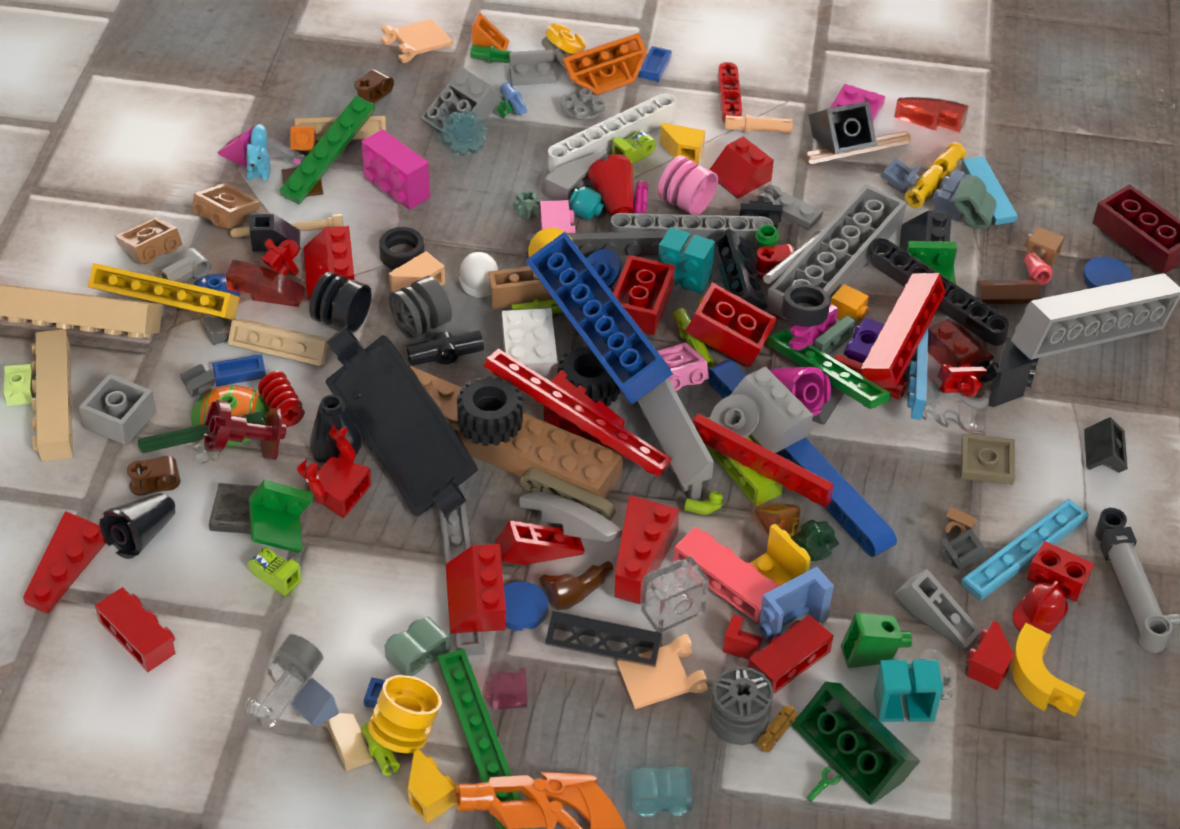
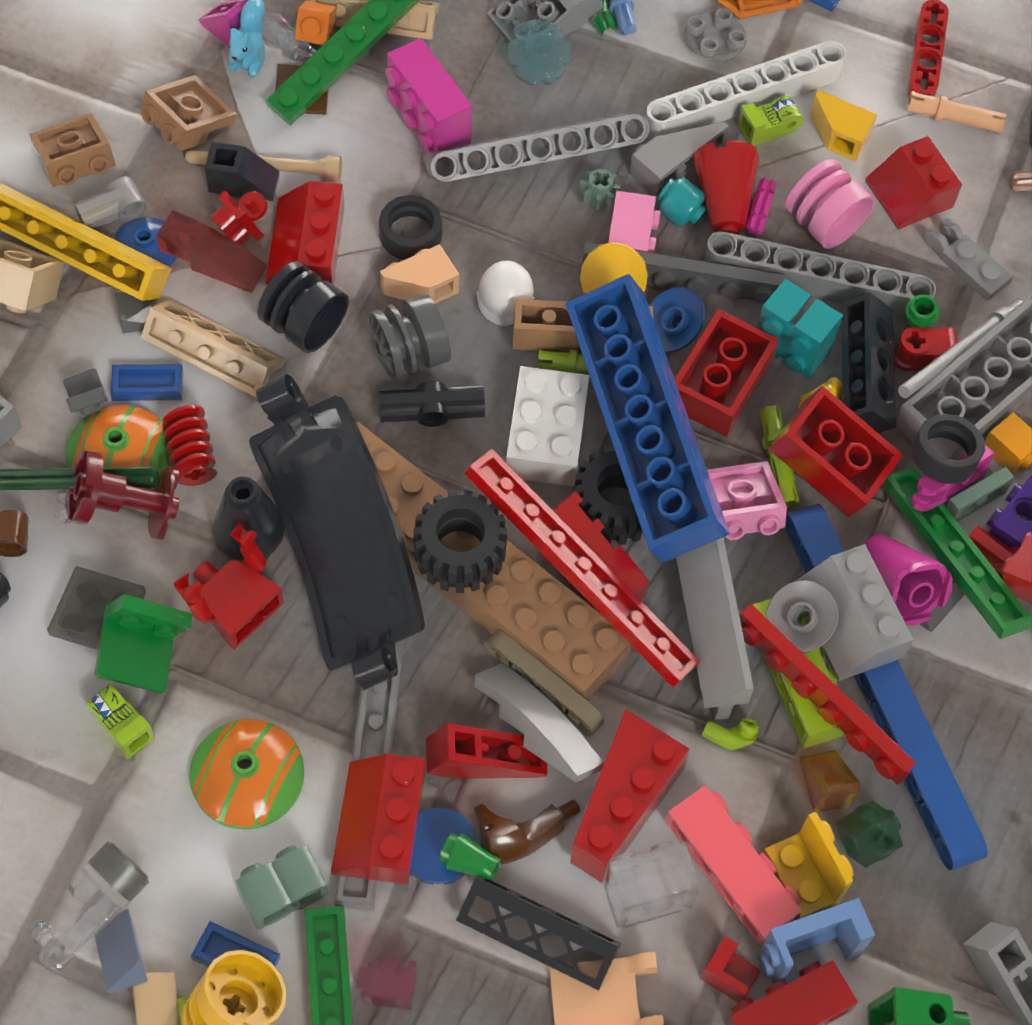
camera: 10 degrees right, 15 degrees up
(377, 597) = (250, 795): none -> orange dish
(468, 191) = (553, 147): none -> light grey beam
(544, 601) = (468, 857): none -> green cone
(762, 209) = (925, 260): black hips -> none

